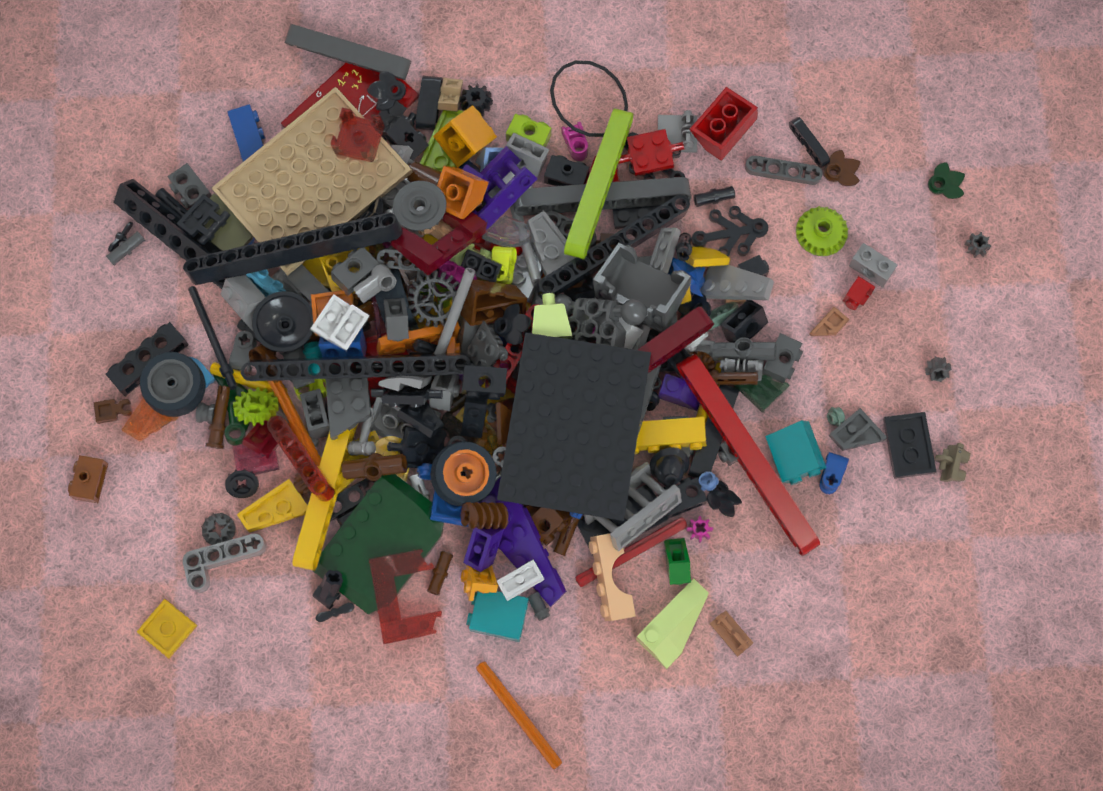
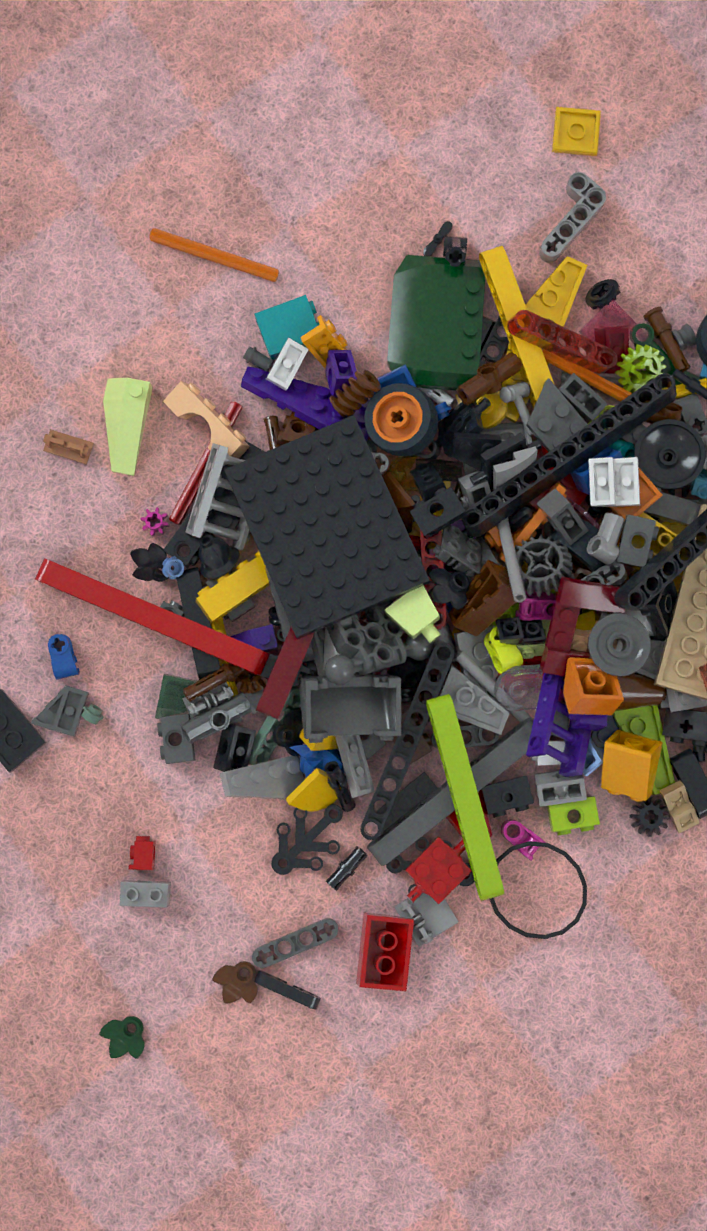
camera: 145 degrees right, 10 degrees up
(227, 532) = (596, 254): dark grey gear -> none
(393, 626) = (414, 291): clear red wedge -> none
(440, 573) = (367, 331): reddish brown pin -> none
(677, 561) = (157, 479): green slope -> none
(755, 265) = (259, 813): black brick -> none
(796, 452) = (107, 649): teal brick -> none
(820, 242) = (230, 889): lime gear -> none
(830, 324) = (152, 807): nougat tile -> none
(938, 369) = (20, 824): dark grey gear -> none
(972, 245) = (56, 978): dark grey gear -> none

